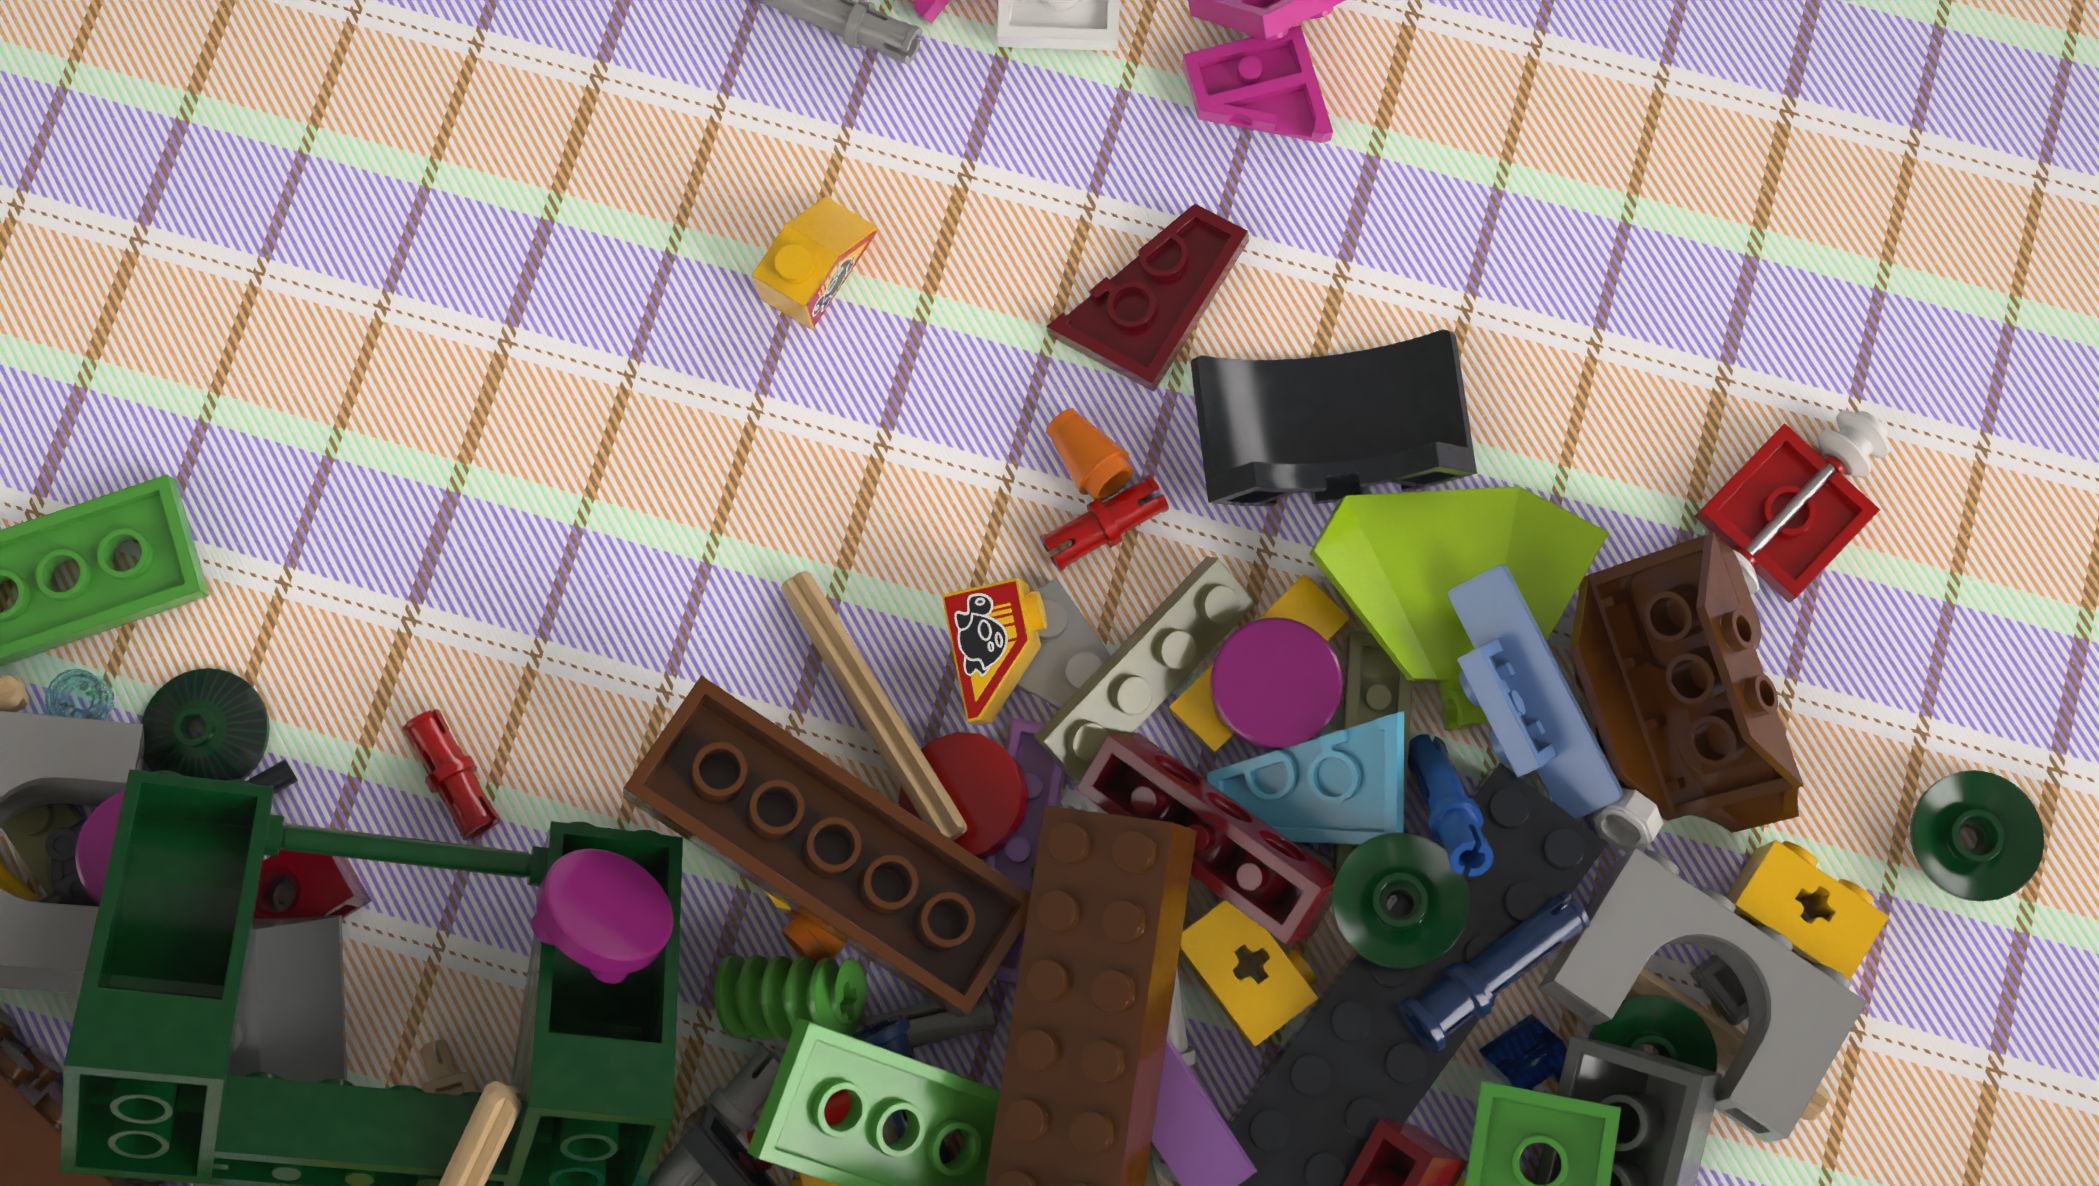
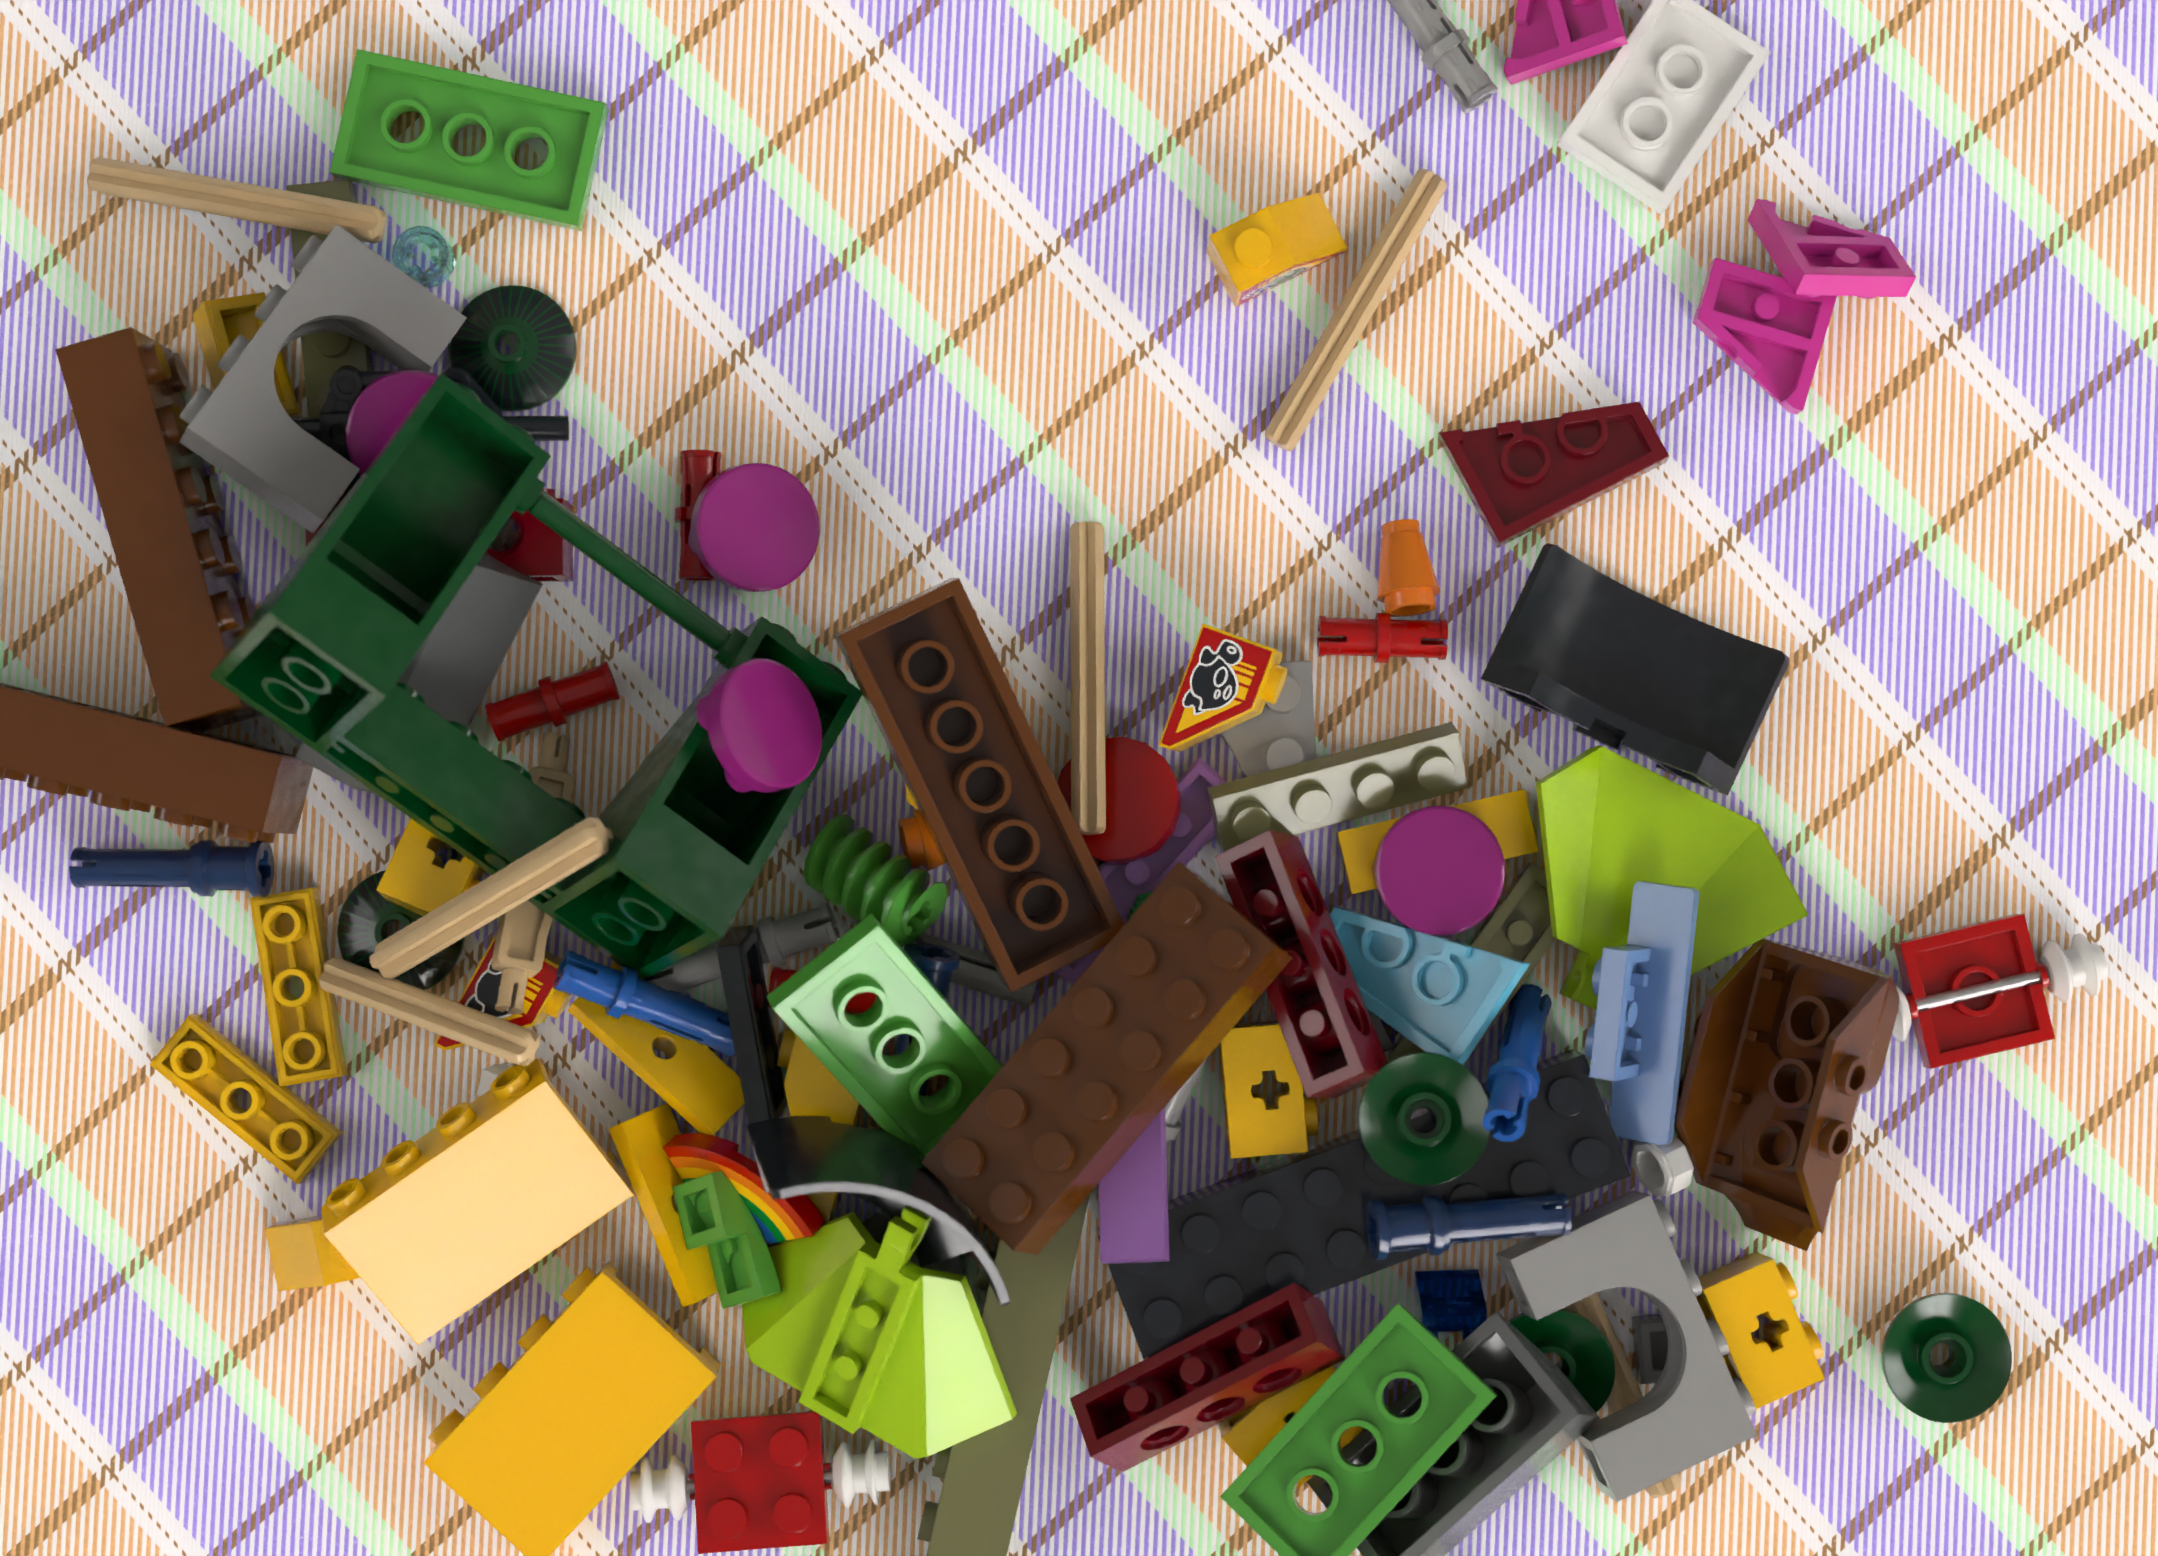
camera: 30 degrees right, 10 degrees up
(410, 1017) = (552, 701): none -> red pin
(503, 753) = (754, 527): none -> magenta tile
(914, 272) = (1355, 309): none -> tan axle

